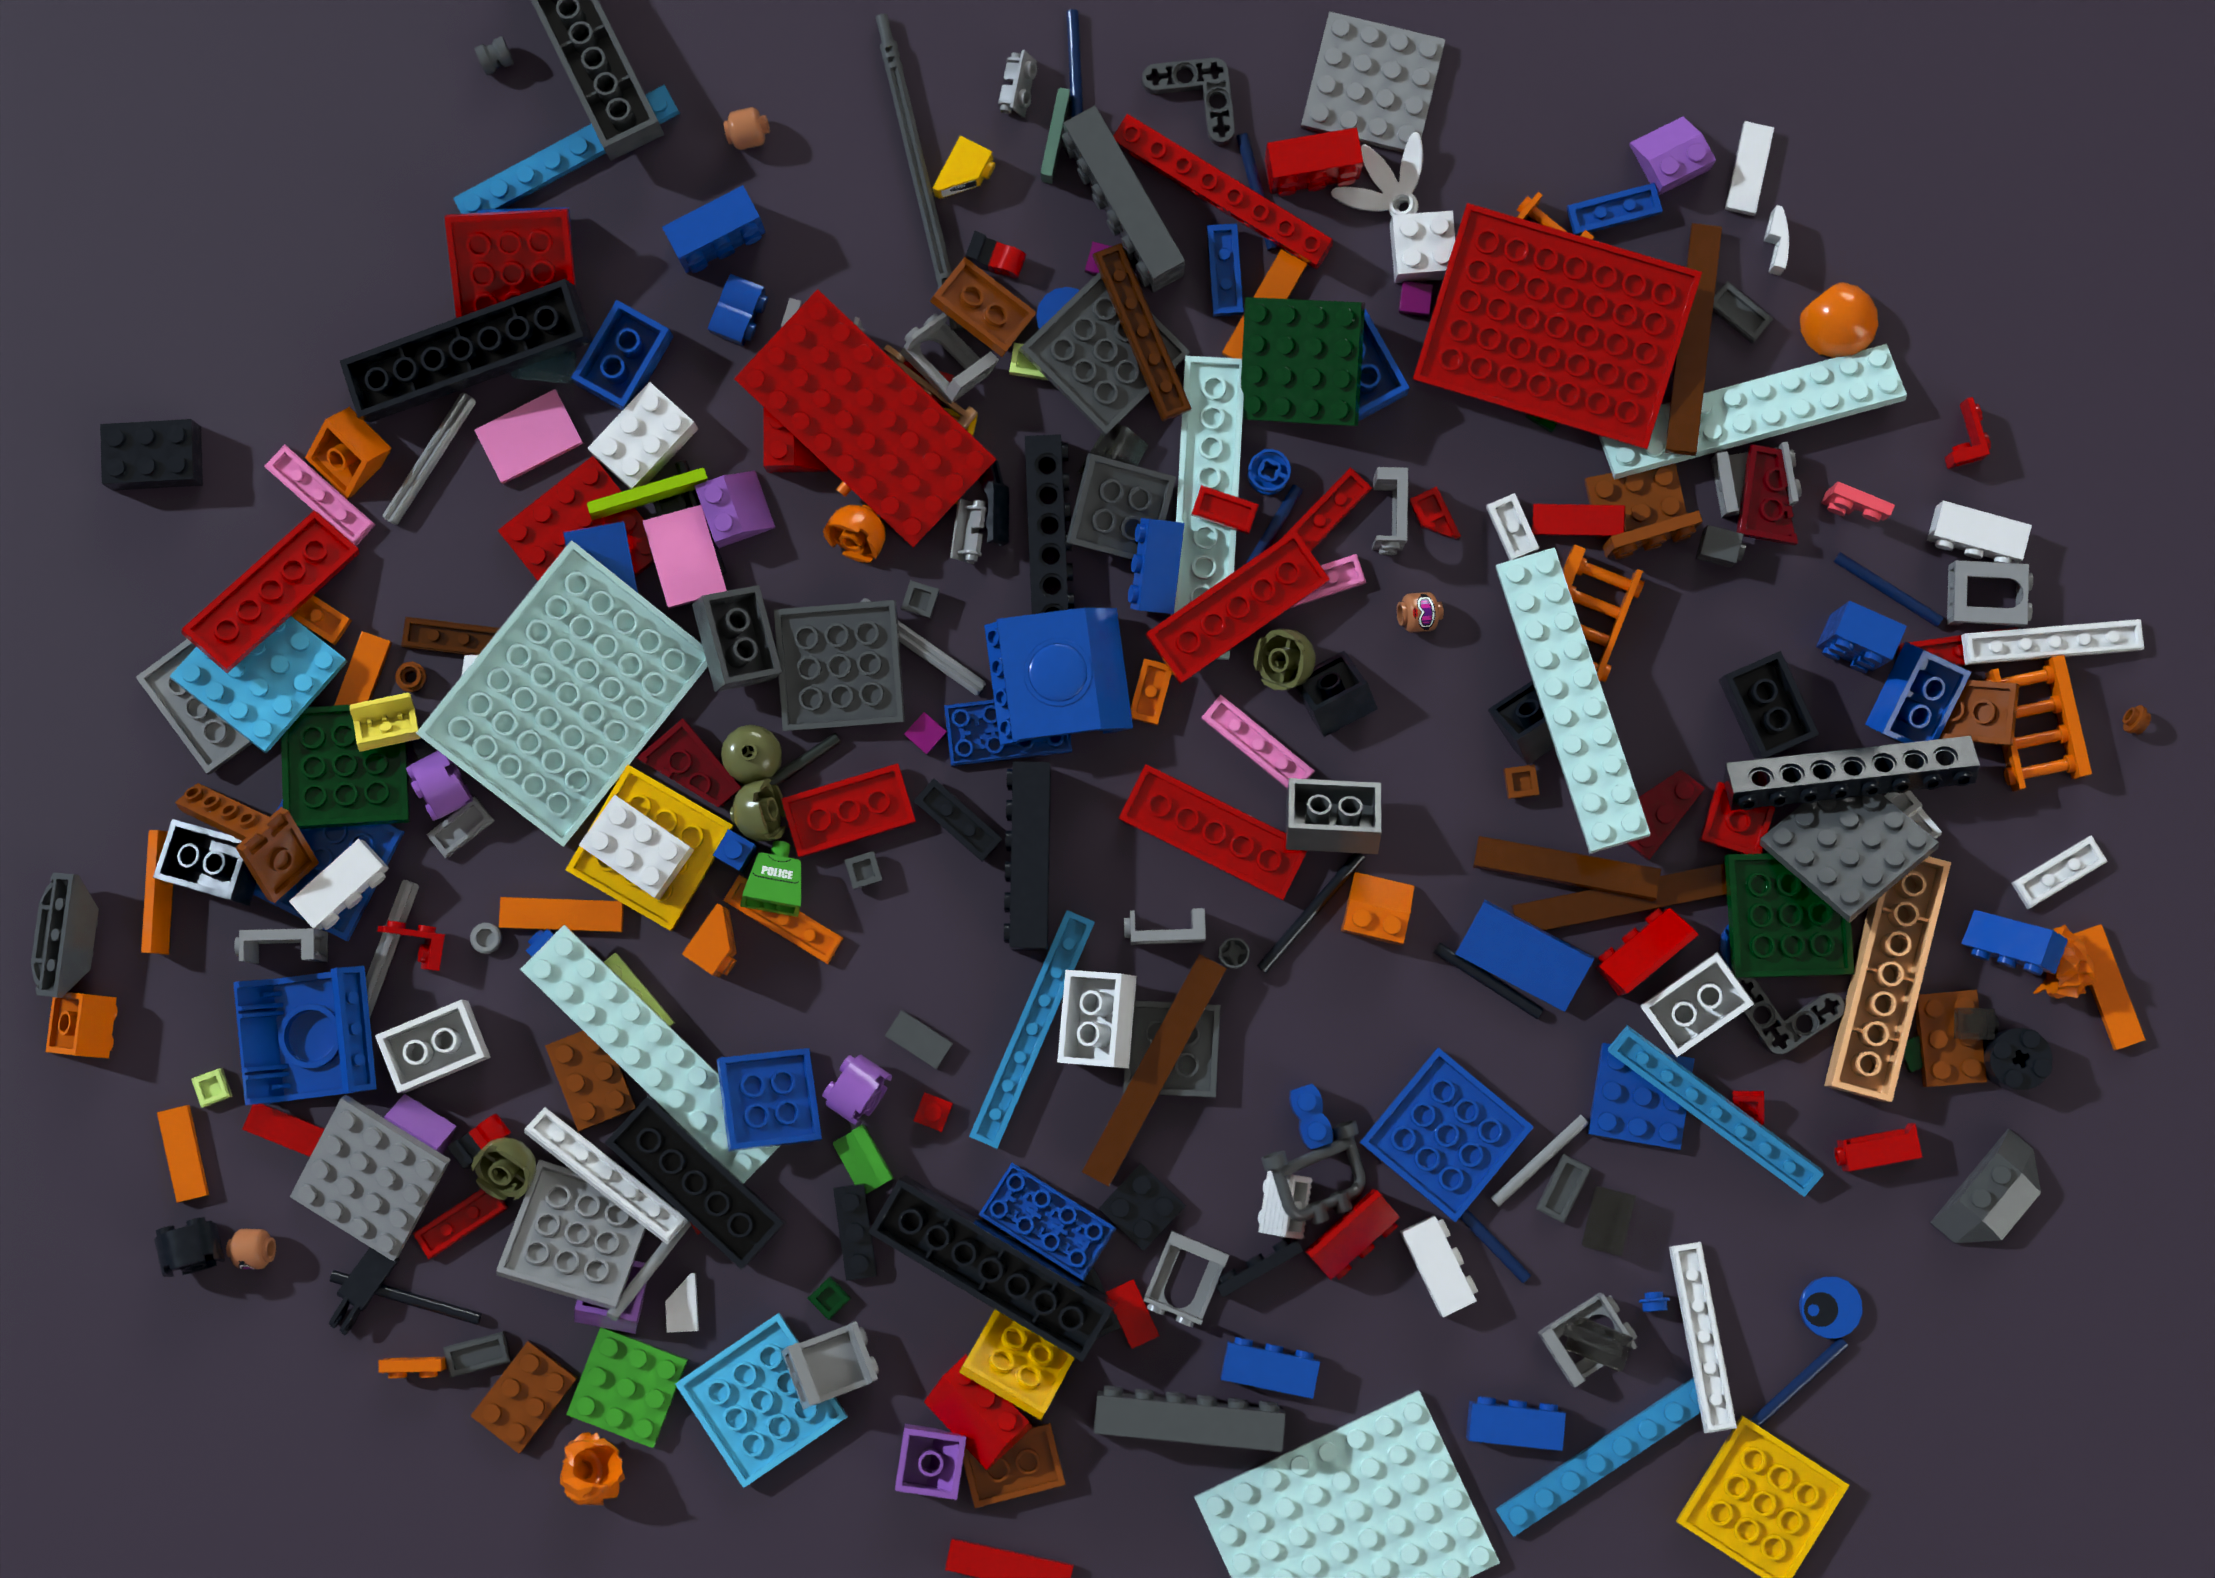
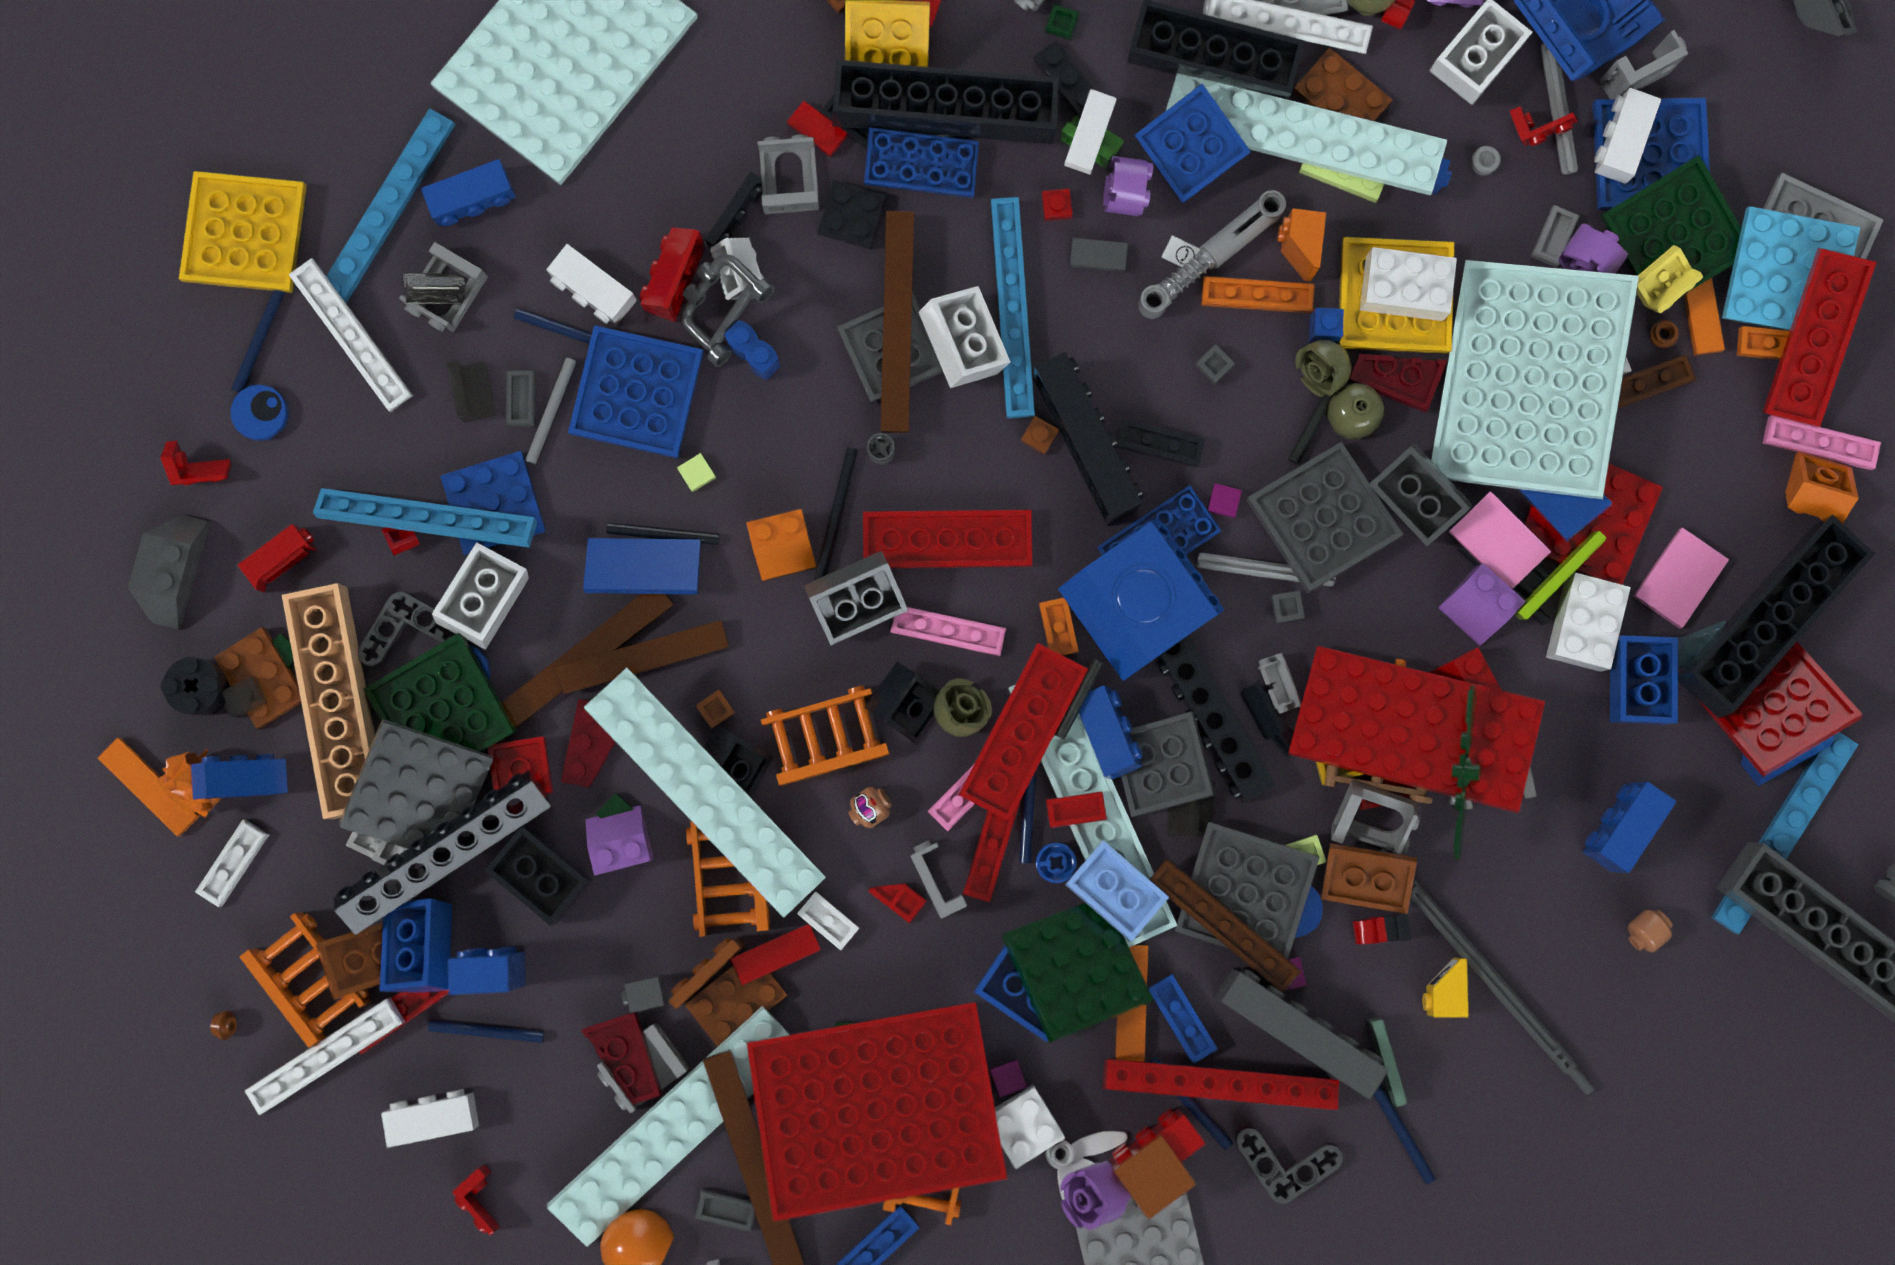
camera: 150 degrees right, 0 degrees up
(156, 901) = (1764, 62): orange tile -> none
(205, 863) = (1739, 101): black brick -> none
(269, 845) = (1702, 127): dark orange bracket -> none
(429, 458) = (1751, 518): light grey axle -> none
(554, 913) = (1437, 208): orange tile -> none
(737, 310) = (1570, 771): blue brick -> none
(774, 882) = (1282, 316): bright green torso -> none
(803, 981) = (1214, 252): none -> light grey piece
(835, 1000) = (1179, 251): none -> white sticker
(847, 349) = (1465, 772): none -> dark green piece
(848, 810) = (1253, 406): red plate -> none
(856, 531) = (1370, 635): orange cylinder -> none
(865, 1161) = (1090, 131): none -> white tile
(1021, 70) = (1444, 1104): light grey hinge -> none
(1071, 889) = (1039, 435): none -> dark orange plate
(1168, 609) = (1079, 699): none -> pearl dark grey bar
(1190, 1420) = (730, 64): dark grey brick -> none
(1194, 935) = (943, 431): light grey panel -> none
(1226, 413) = (1117, 891): none -> light blue plate
(1270, 1368) = (685, 139): blue brick -> none
(1330, 136) = (1154, 1177): none -> dark orange tile
(1393, 149) = (1094, 1196): none -> medium lavender brick
(1426, 1024) = (696, 472): none -> yellowish green tile
(1448, 679) = (818, 763): none -> orange fence
(1644, 950) = (544, 618): red slope -> none
(1654, 1302) = (403, 344): blue plate -> none
(1665, 732) = (614, 806): none -> dark green tile
(1676, 703) = (618, 841): none -> medium lavender slope
(1845, 499) = (559, 1086): coral plate -> none
(1924, 1278) = (186, 473): none -> red bracket
(1957, 607) = (426, 1060): light grey panel -> none

